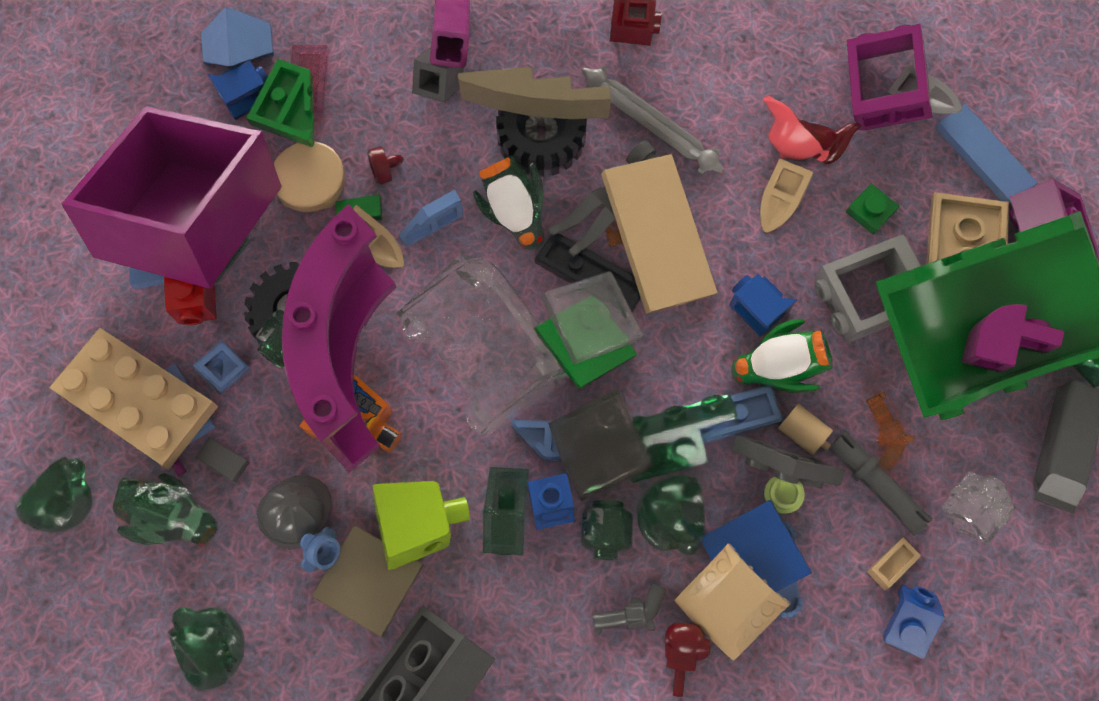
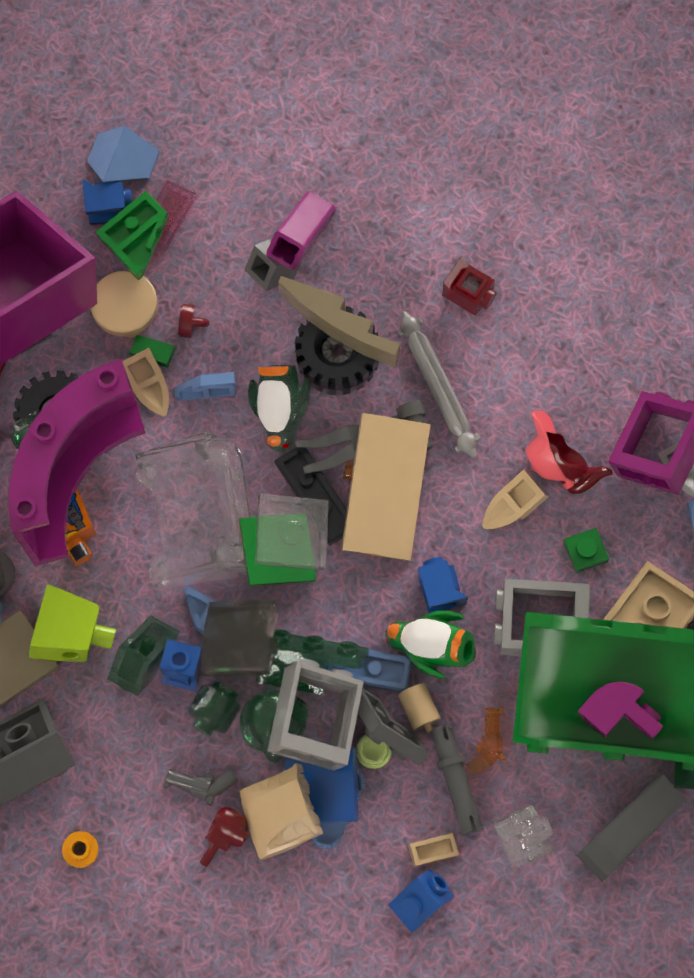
camera: 30 degrees right, 0 degrees up
(751, 474) = (304, 749): none -> light grey window

